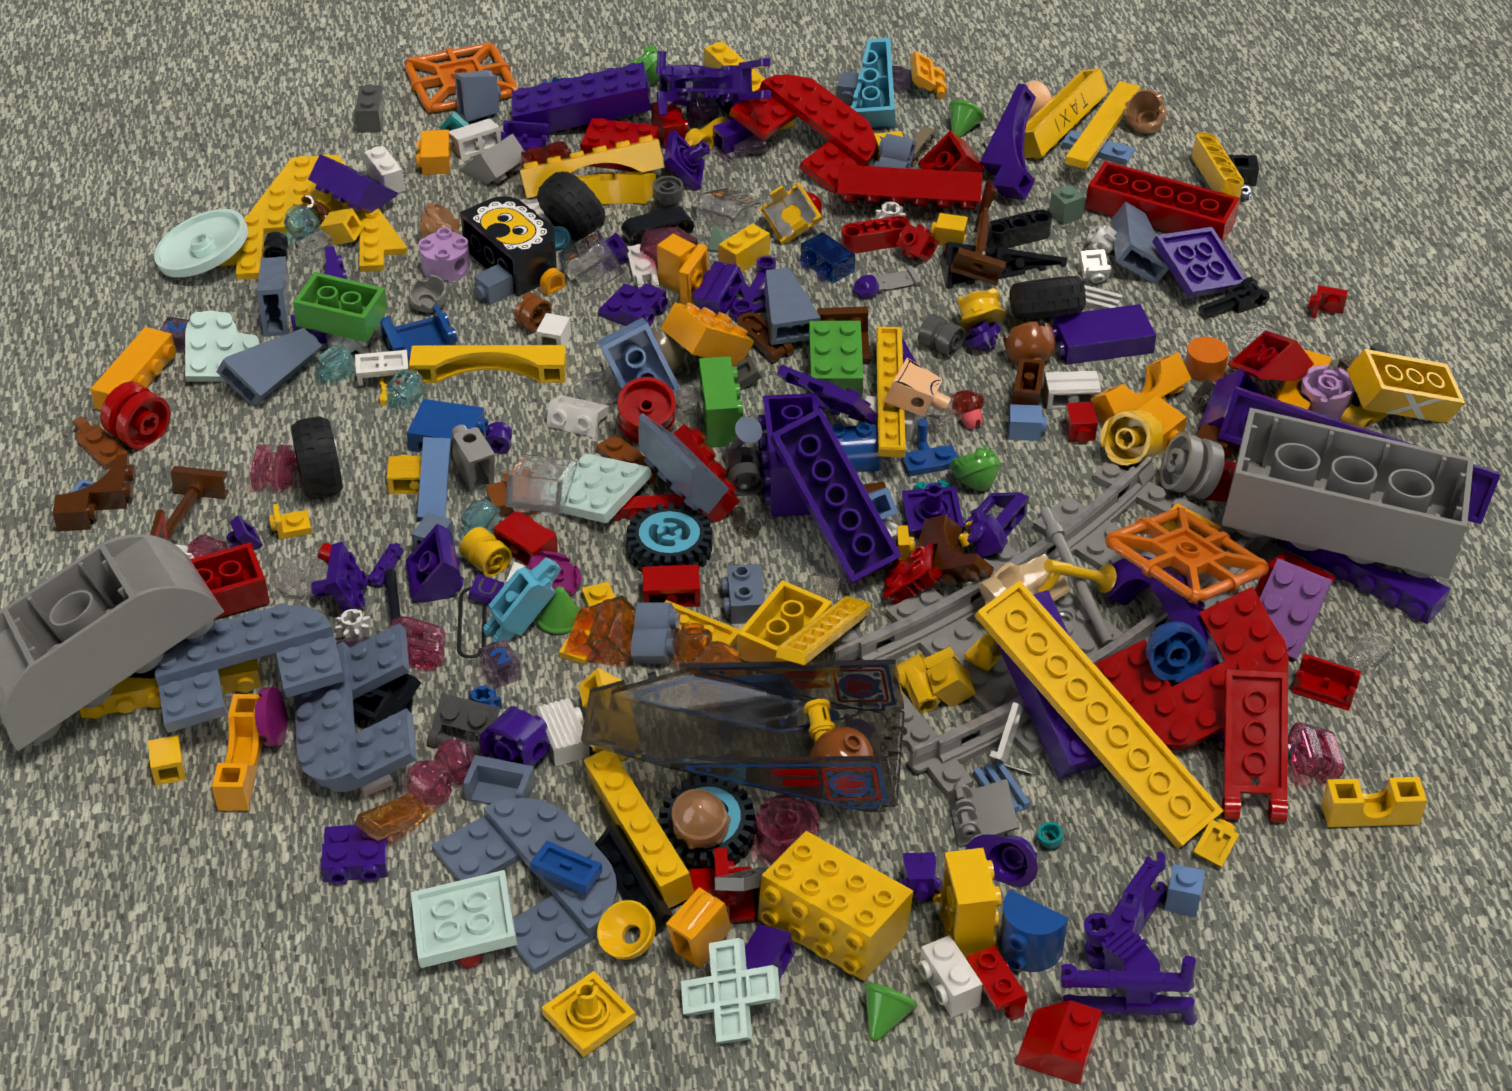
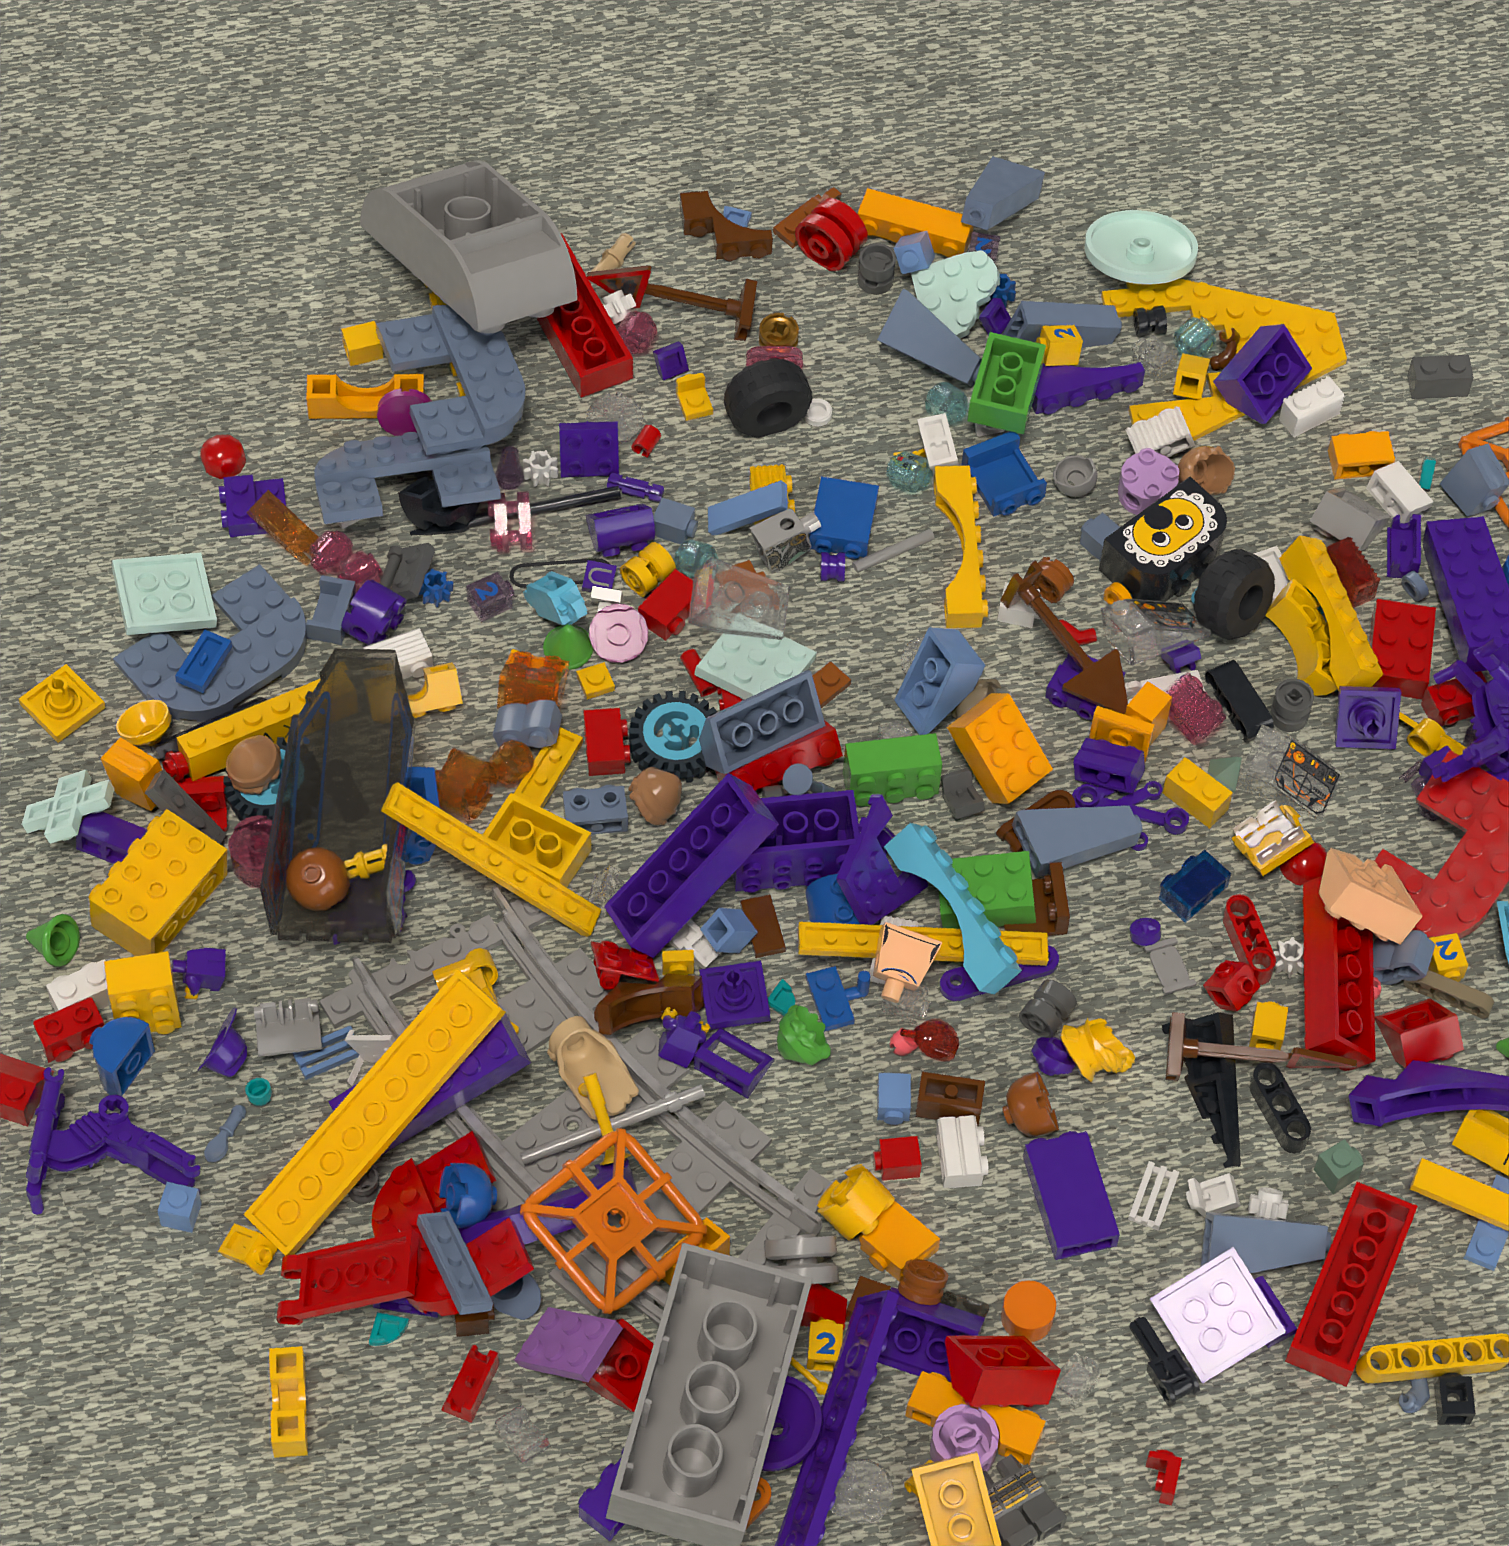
camera: 85 degrees right, 15 degrees up
(119, 313) = (1001, 192): none -> sand blue slope
(171, 366) = (914, 252): none -> medium blue brick
(179, 393) = (876, 268): none -> dark grey wheel
(233, 461) = (775, 325): none -> pearl gold wheel
(246, 328) = (995, 317): none -> dark purple tile
(283, 880) = (223, 456): none -> red hair
(296, 278) = (1062, 345): none -> yellow brick
(401, 245) = (1162, 433): none -> white brick
(478, 400) = (893, 550): none -> light grey bar
(558, 300) = (1100, 680): none -> reddish brown piece
(563, 134) = (1415, 586): none -> sand blue tile
(575, 415) = (883, 638): white bracket -> none
(583, 310) = (1081, 636): none -> red arm
(598, 529) = (690, 660): none -> red axle
(647, 397) = (870, 696): red wheel -> none
(678, 897) = (175, 765): none -> red plate
(734, 544) = (656, 794): none -> medium nougat hair
(860, 149) = (1367, 896): none -> light nougat wedge
(913, 343) = (985, 955): none -> medium azure arch
(1047, 297) = (1109, 1119): black tyre -> none
(1106, 870) = (218, 1145): none -> sand blue piece
(1162, 377) = (930, 1201): light orange arch -> none
(1196, 404) = (923, 1282): none -> dark orange wheel
(1252, 643) = (454, 1263): none -> sand blue tile
(1315, 752) = (378, 1367): clear pink brick -> none

